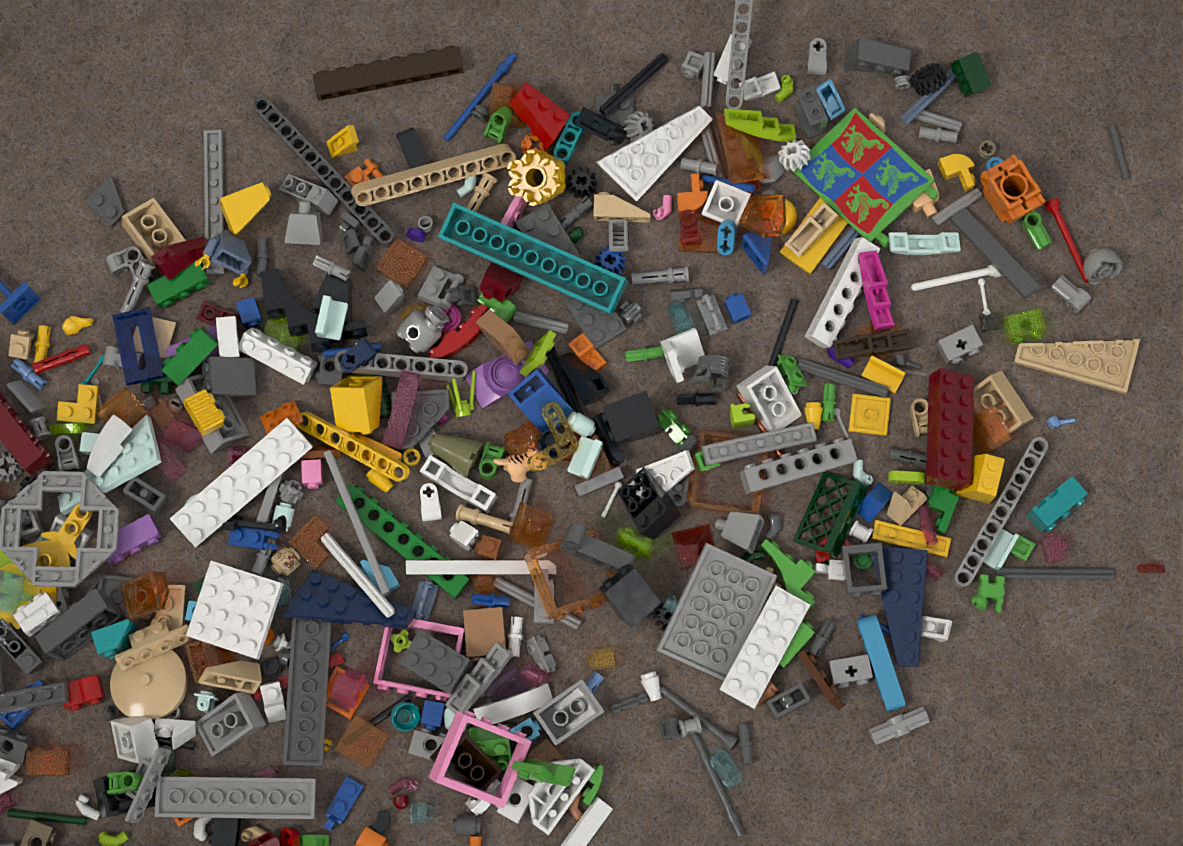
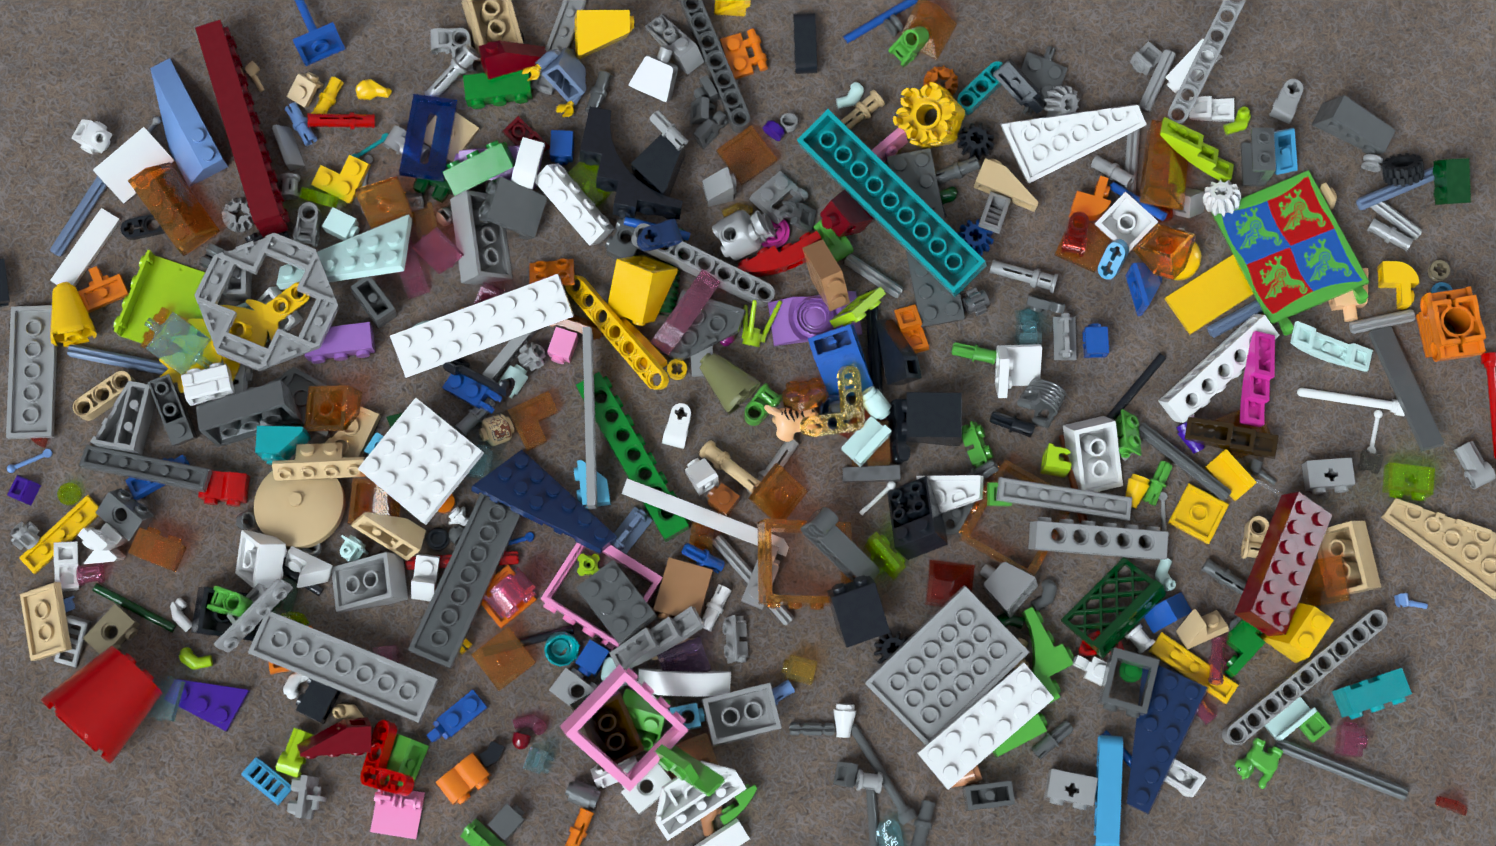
camera: 15 degrees right, 0 degrees up
(107, 445) = (353, 231): white slope -> none
(204, 412) = (470, 234): yellow brick -> none
(331, 318) = (646, 184): light aqua panel -> none
(357, 575) = (569, 474): white axle -> none
(379, 480) = (632, 380): yellow cone -> none
(424, 172) = (809, 65): tan beam -> none
(458, 484) = (716, 418): white arch -> none
(533, 675) = (718, 657): clear pink bush -> none
(539, 113) = (958, 48): red wedge -> none
(633, 84) = (1073, 55): black axle -> none
(664, 210) = (1057, 204): bright pink arm -> none
(671, 604) = (899, 638): clear light blue plate -> none
(812, 229) = (1211, 286): tan slope -> none
(821, 679) = (1035, 784): reddish brown wing -> none
(906, 477) = (1213, 598): lime beam -> none
(1037, 232) = (1461, 383): bright green piece -> none

